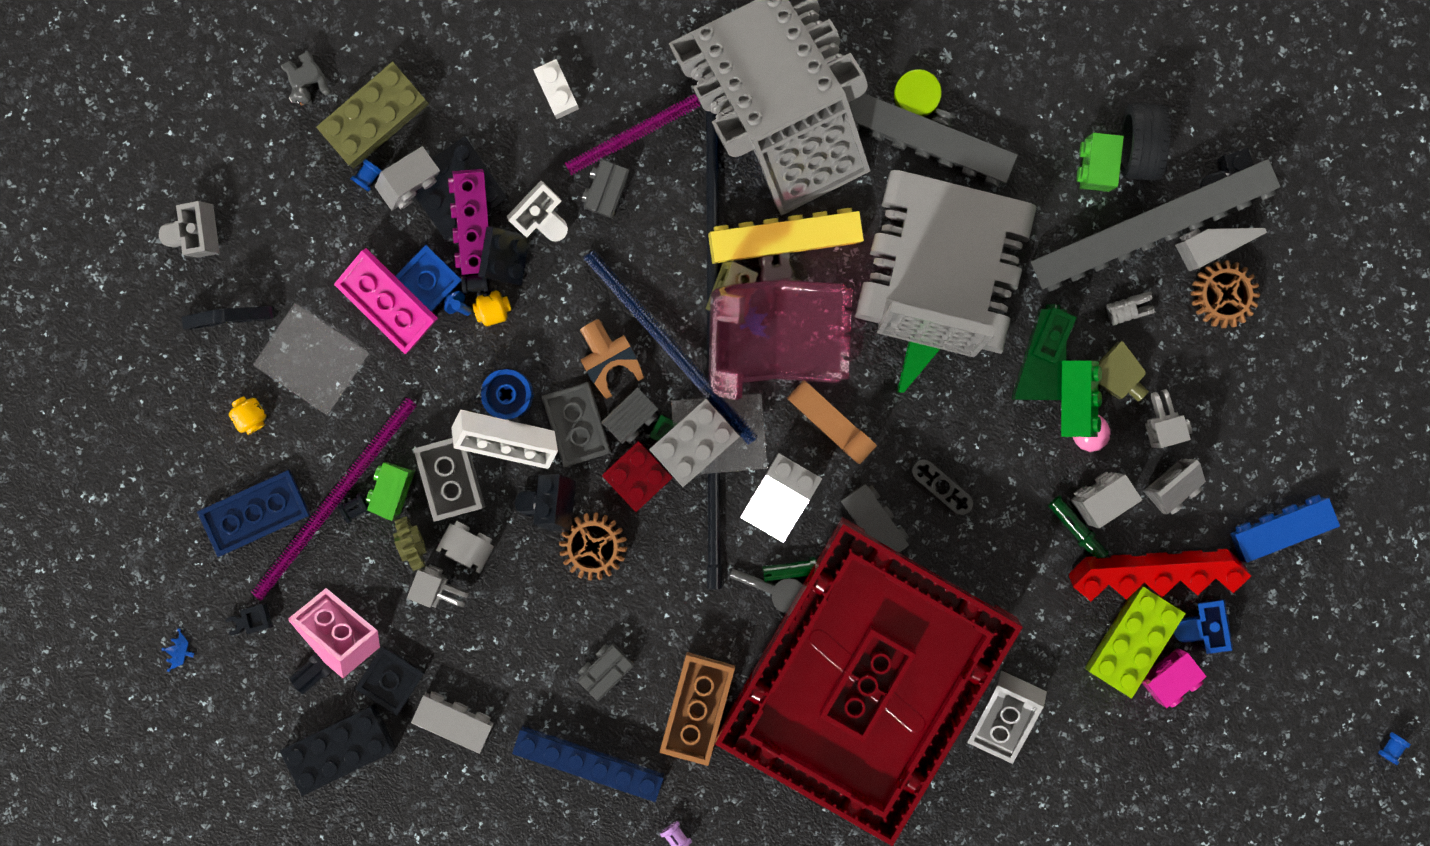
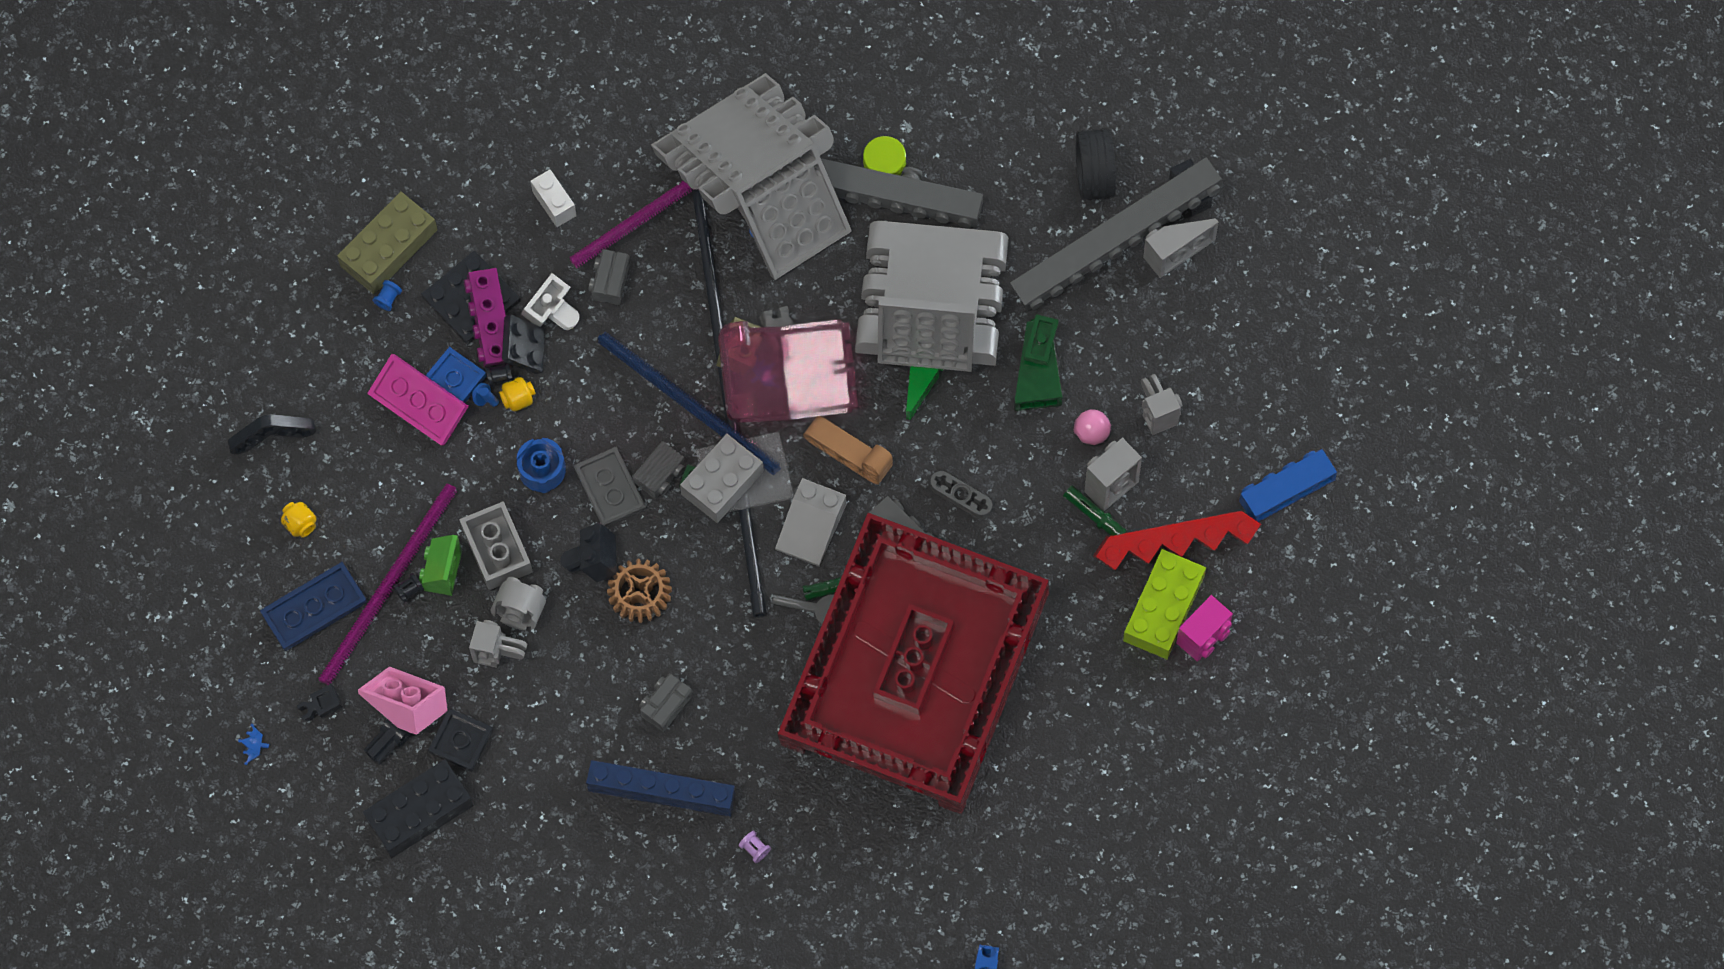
camera: 10 degrees left, 20 degrees down
(193, 231) = (231, 363): light grey brick -> none
(304, 76) = (319, 220): dark grey animal -> none
(311, 359) = (352, 464): clear piece -> none
(402, 179) = (422, 288): light grey brick -> none
(409, 543) = (465, 606): olive gear -> none
(453, 721) = (526, 769): light grey brick -> none
(504, 439) = (543, 498): white brick -> none
(606, 356) = (631, 422): medium nougat connector -> none
(637, 476) = (673, 521): dark red brick -> none
(697, 709) = (757, 720): medium nougat brick -> none
(786, 236) = (790, 290): light yellow brick -> none
(1007, 717) = (1055, 691): light grey slope -> none
(1080, 399) = (1074, 391): green brick -> none
(1100, 162) = (1059, 190): bright green brick -> none
(1122, 373) = (1109, 371): olive torso -> none
(1126, 308) = (1107, 315): light grey hinge -> none
(1176, 485) = (1178, 456): light grey slope -> none
(1210, 626) = (1231, 580): blue brick -> none
(1216, 287) = (1180, 279): medium nougat gear -> none
(1394, 748) = (1429, 669): blue bush -> none

